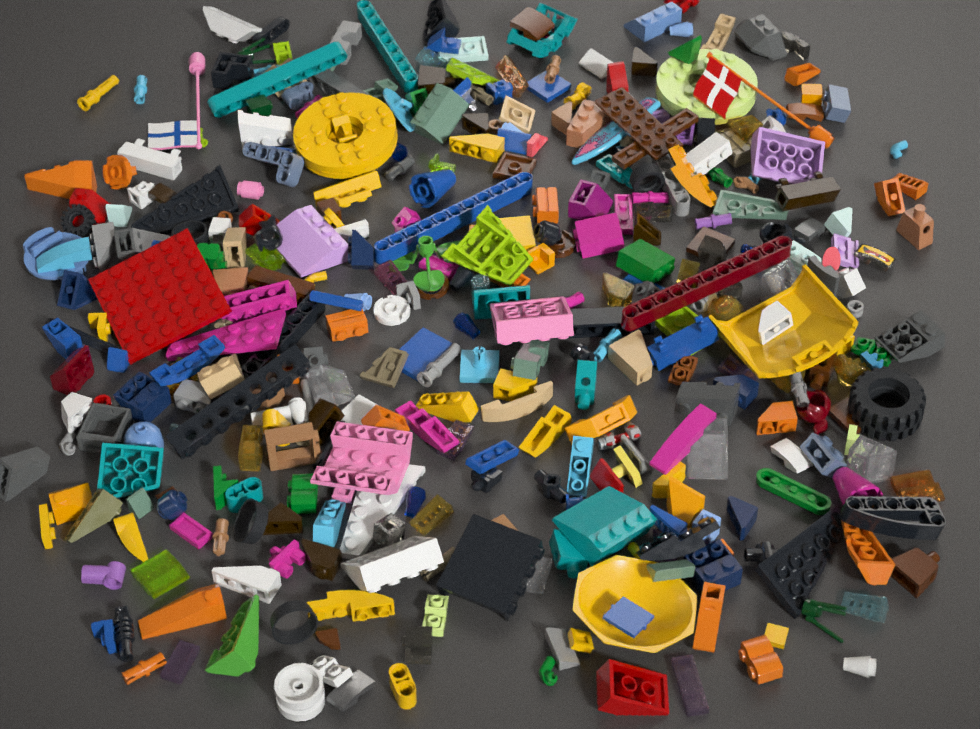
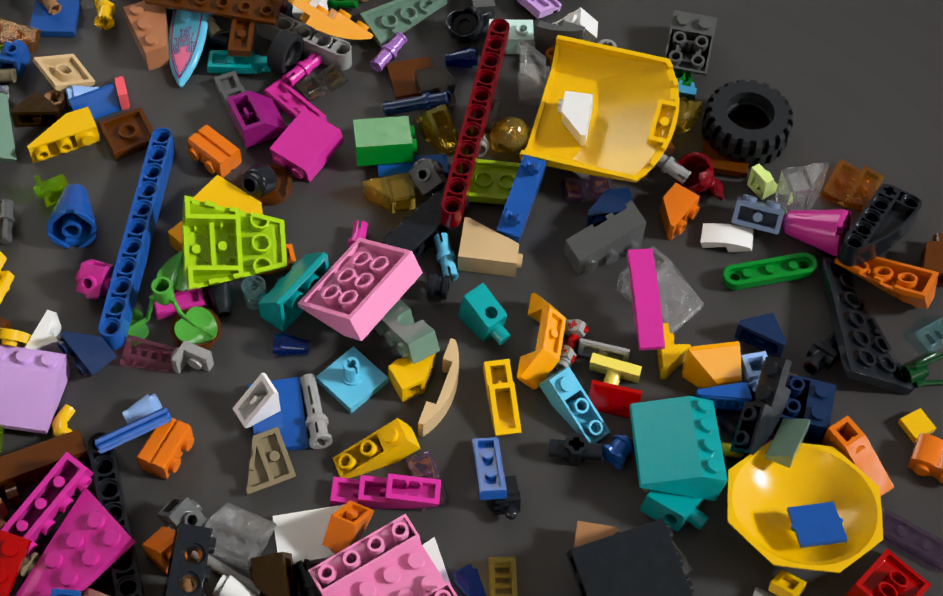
camera: 50 degrees left, 10 degrees up
(391, 310) = (189, 391): white tile -> none
(414, 336) = (258, 402): none -> white slope
(542, 257) = (278, 207): light orange panel -> none
(562, 117) = (120, 43): medium nougat slope -> none
(646, 231) = (341, 110): dark brown slope -> none
(683, 370) = (541, 229): dark orange slope -> none
(687, 254) = (425, 101): none -> dark blue pin
(832, 258) = (538, 13): coral sticker -> none

